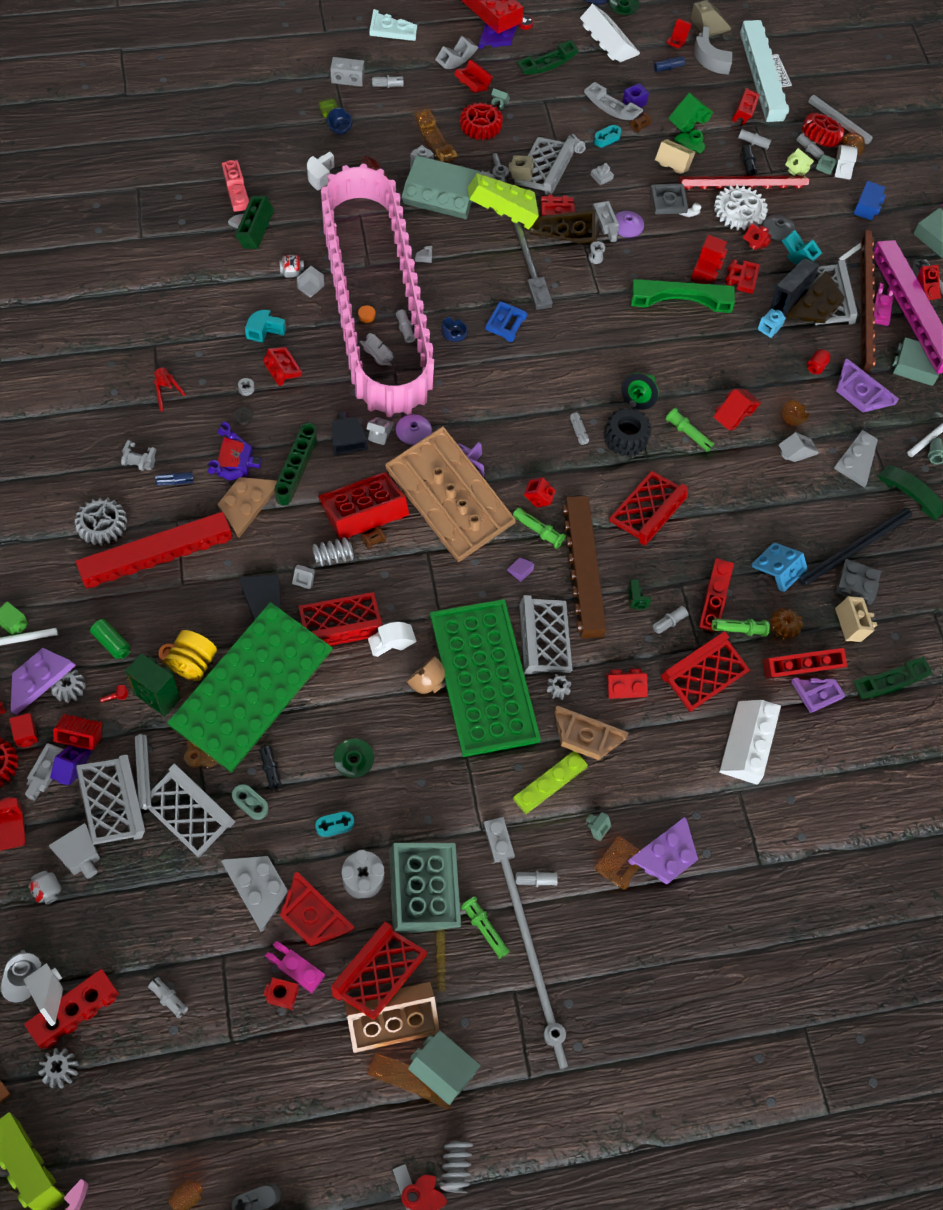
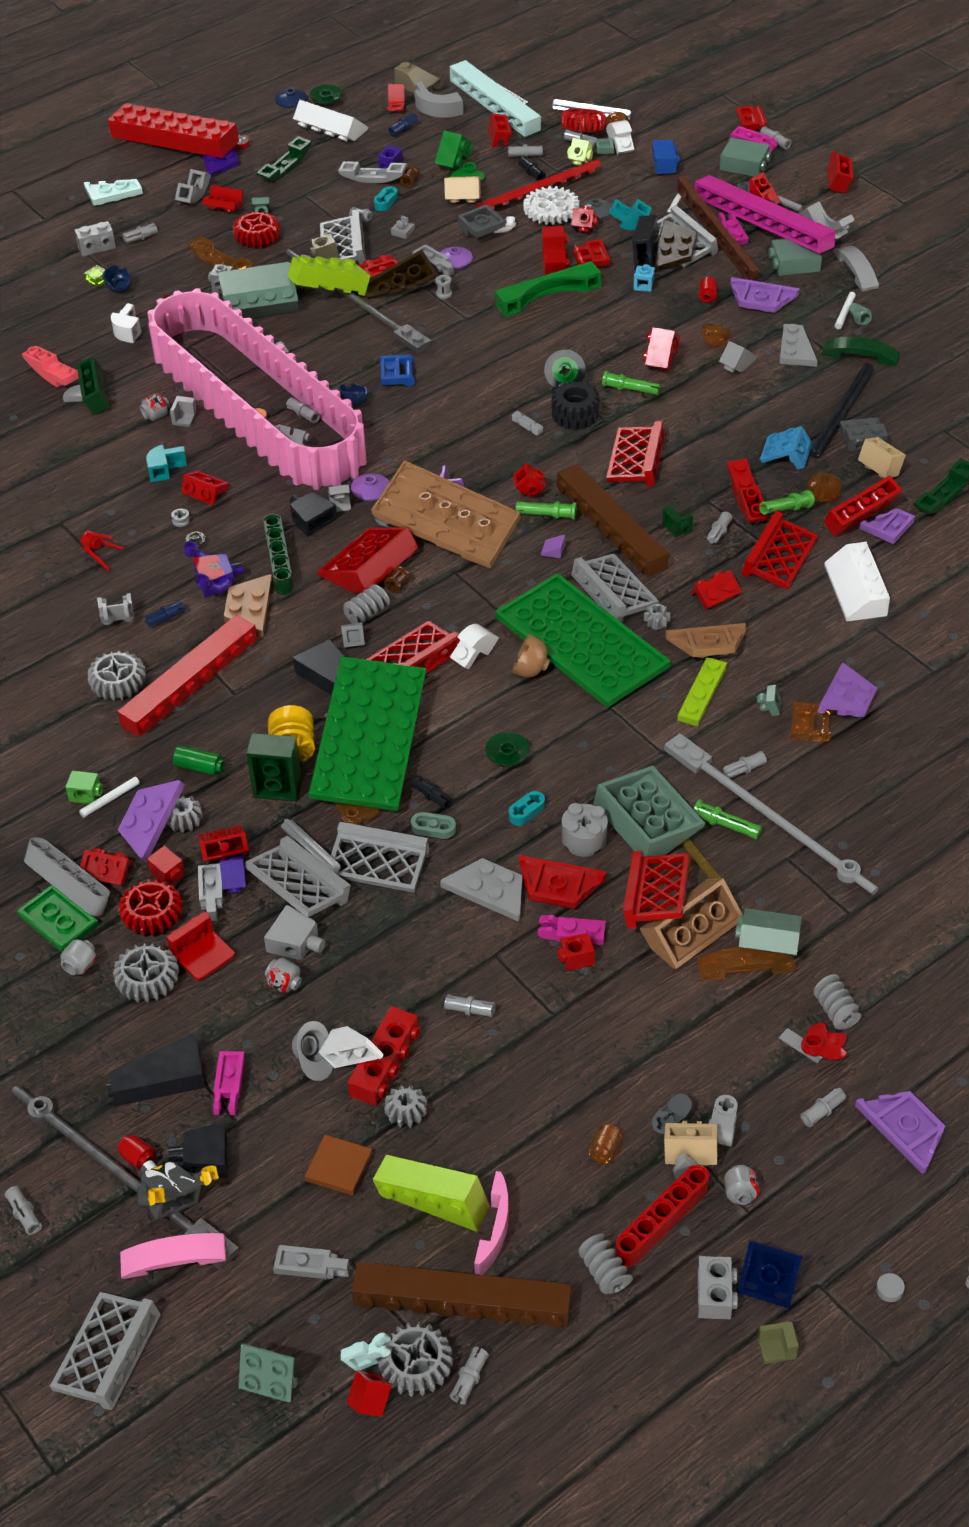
camera: 20 degrees left, 15 degrees down
(121, 694) = (240, 800): red hand -> none

